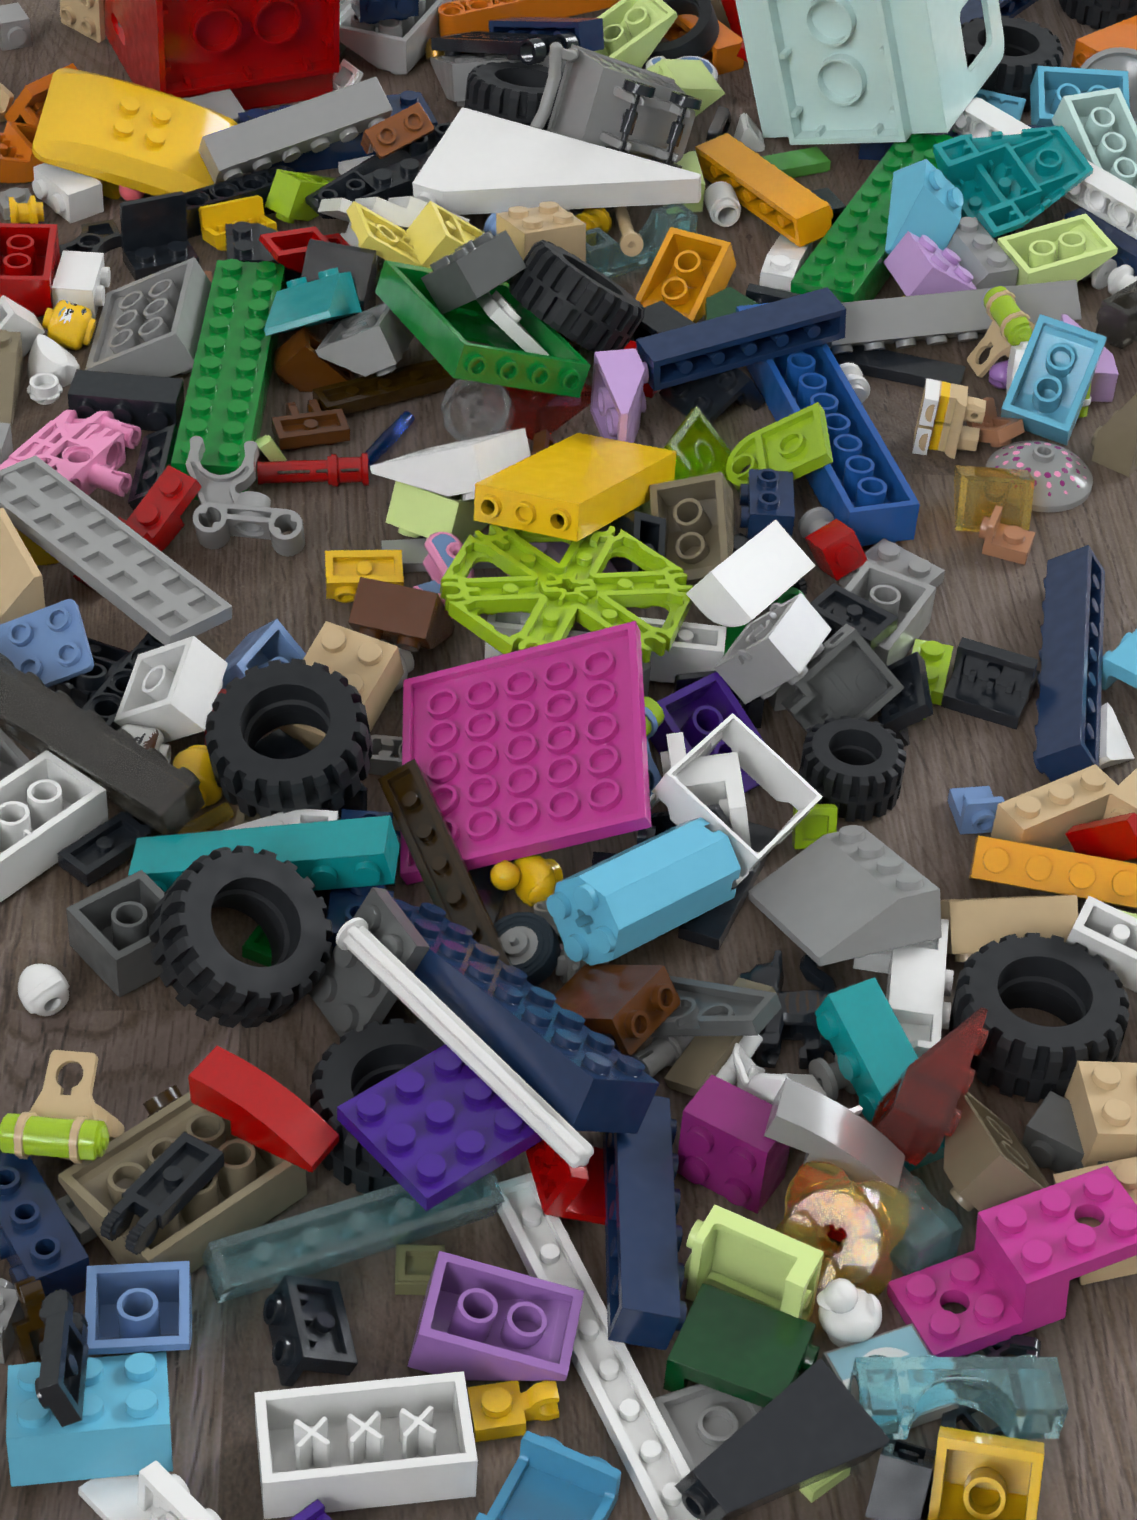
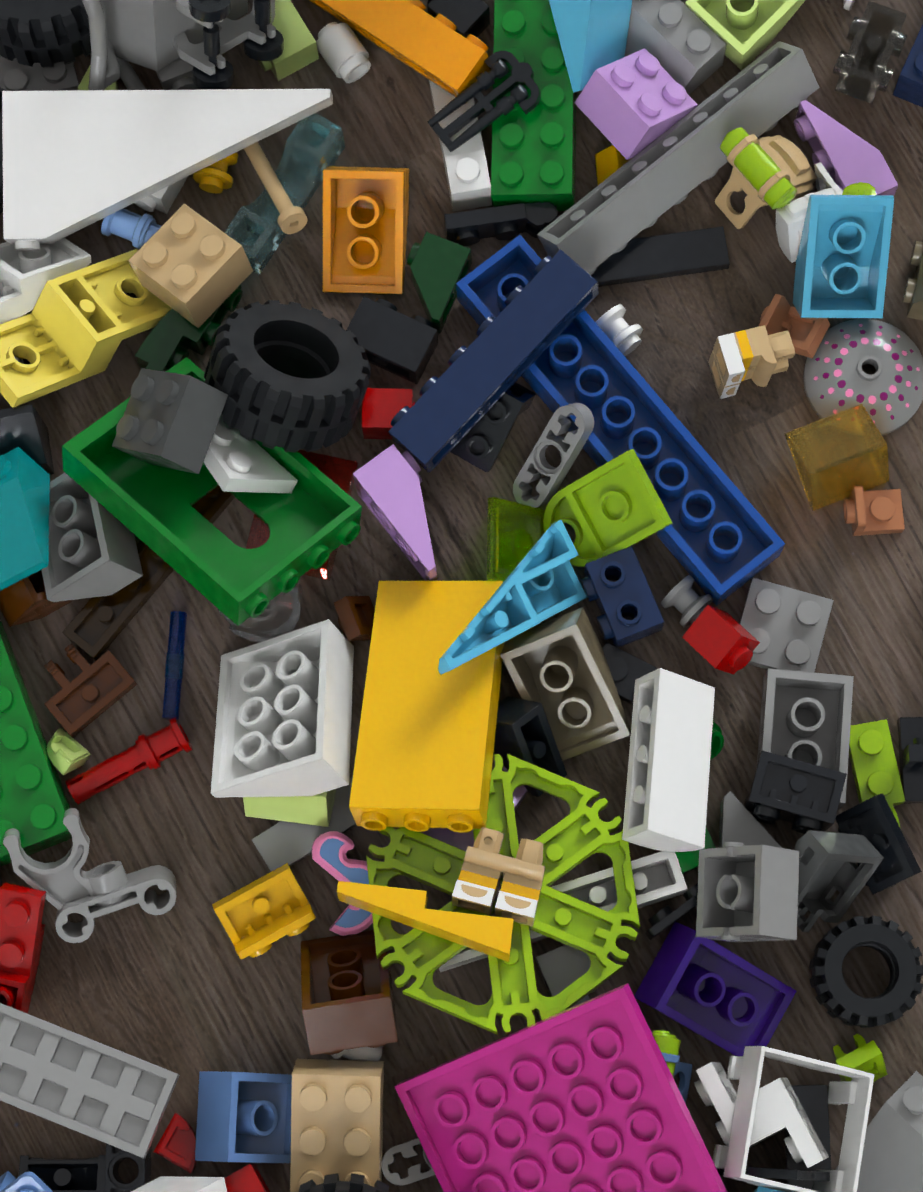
camera: 15 degrees left, 35 degrees up
(485, 553) = (409, 906): none -> yellow slope
(570, 567) = (484, 869): none -> tan hips
(677, 448) = (532, 593): none -> medium azure wedge
(781, 388) = (569, 448): none -> light grey beam
(816, 232) = (521, 75): none -> black piece
(998, 375) = (764, 223): medium lavender hinge -> none

